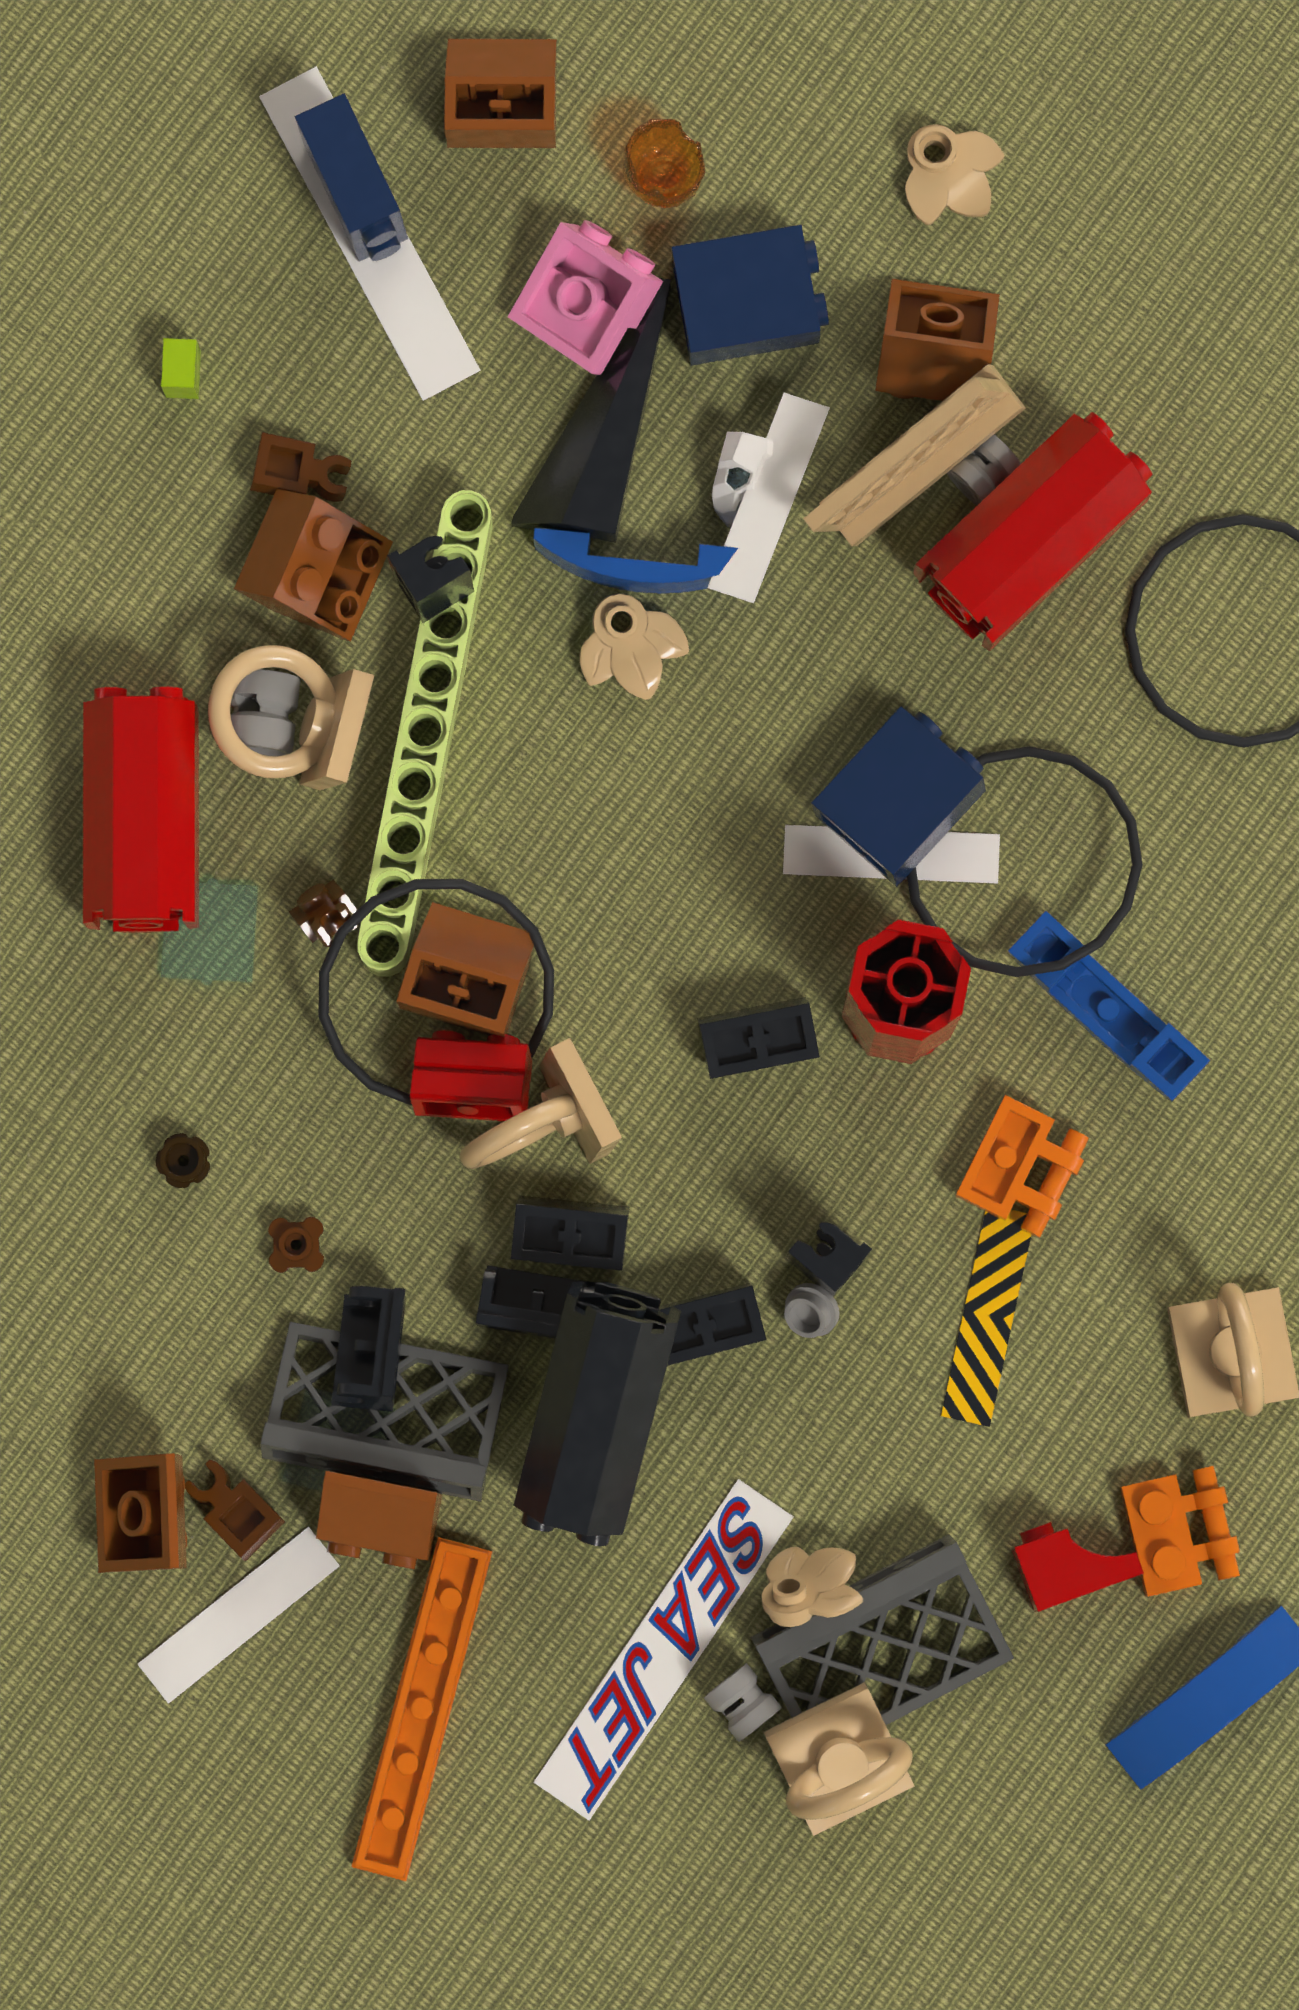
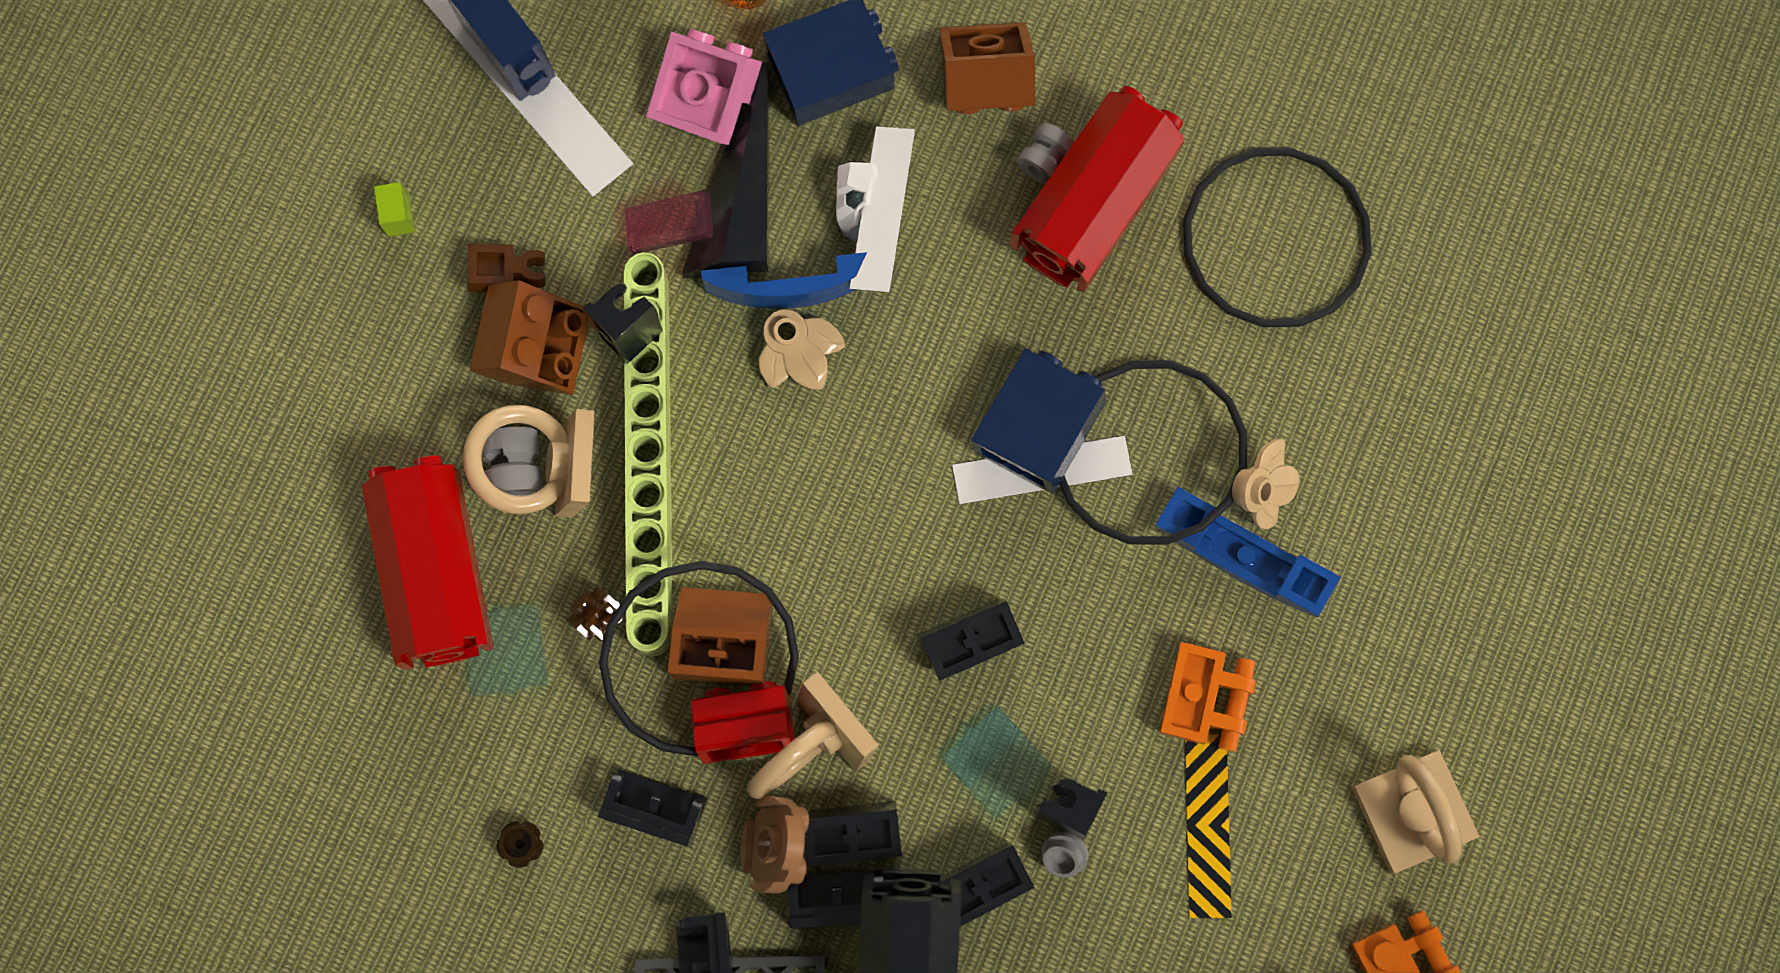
camera: 15 degrees left, 5 degrees down
(283, 1235) = (618, 904): reddish brown plate -> none
(346, 1153) = (653, 808): none -> black hinge
(478, 1225) = (775, 845): none -> medium nougat plate
(508, 456) = (669, 222): none -> clear pink tile
(758, 1187) = (997, 762): none -> clear light blue piece
(912, 960) = (1087, 571): red brick -> none
(918, 458) = (993, 151): tan fence -> none
(1151, 932) = (1266, 485): none -> tan plate

